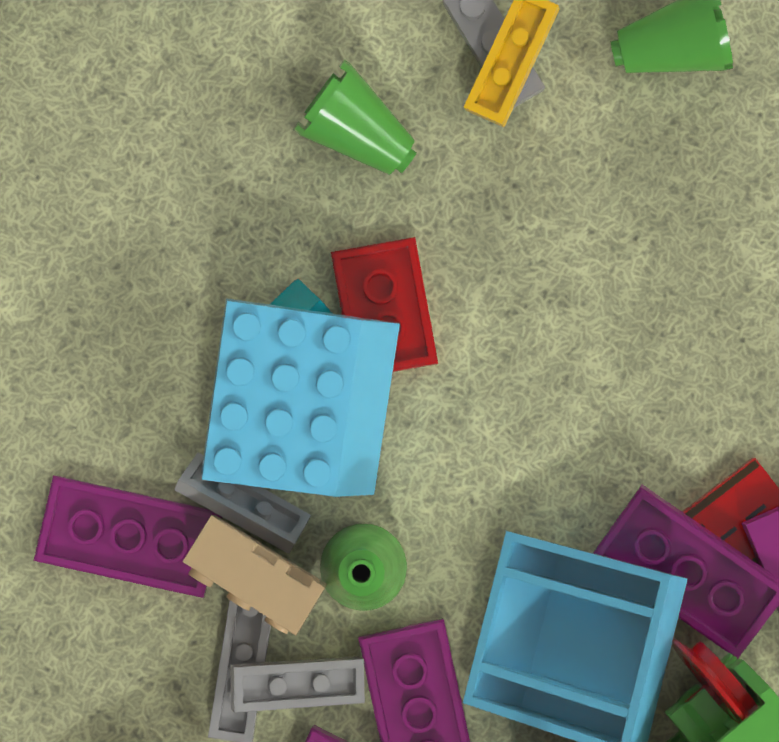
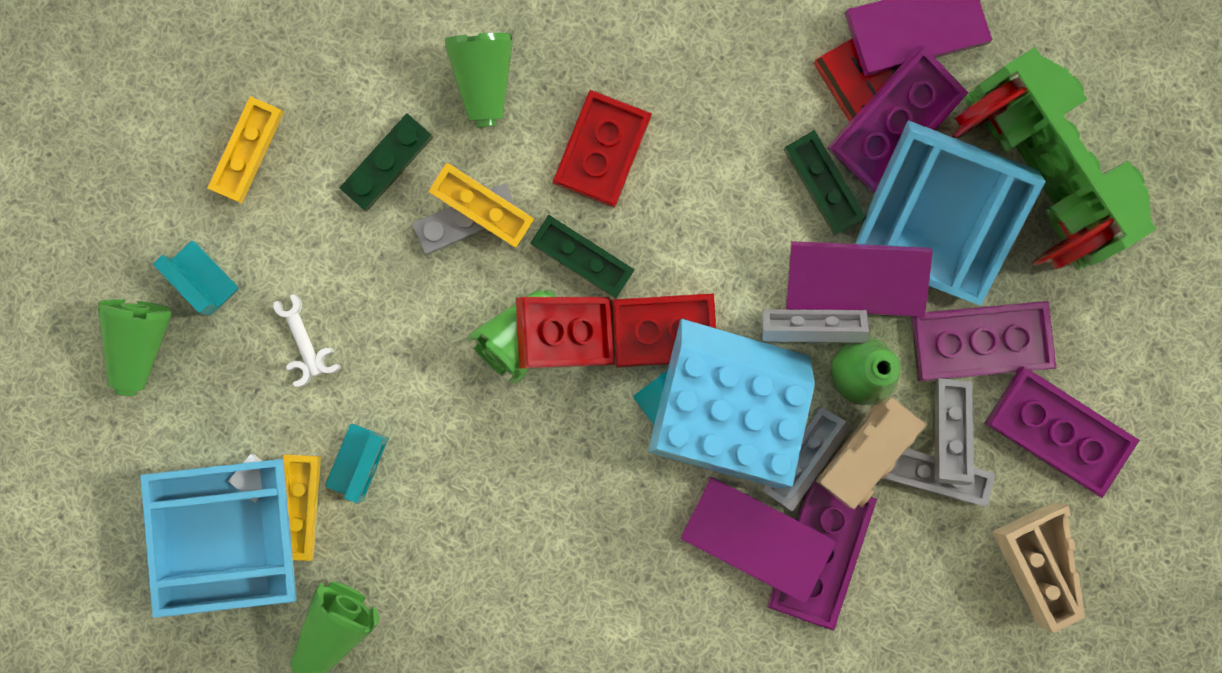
camera: 85 degrees left, 0 degrees up
(135, 453) = (758, 540): none -> magenta tile
(364, 178) = (564, 332): none -> red tile
(411, 493) = (815, 326): none -> light grey plate
(463, 193) = (582, 256): none -> dark green plate
(477, 541) = (859, 278): none -> magenta tile
(596, 487) = (824, 183): none -> dark green plate
(605, 202) = (602, 148): none -> red tile

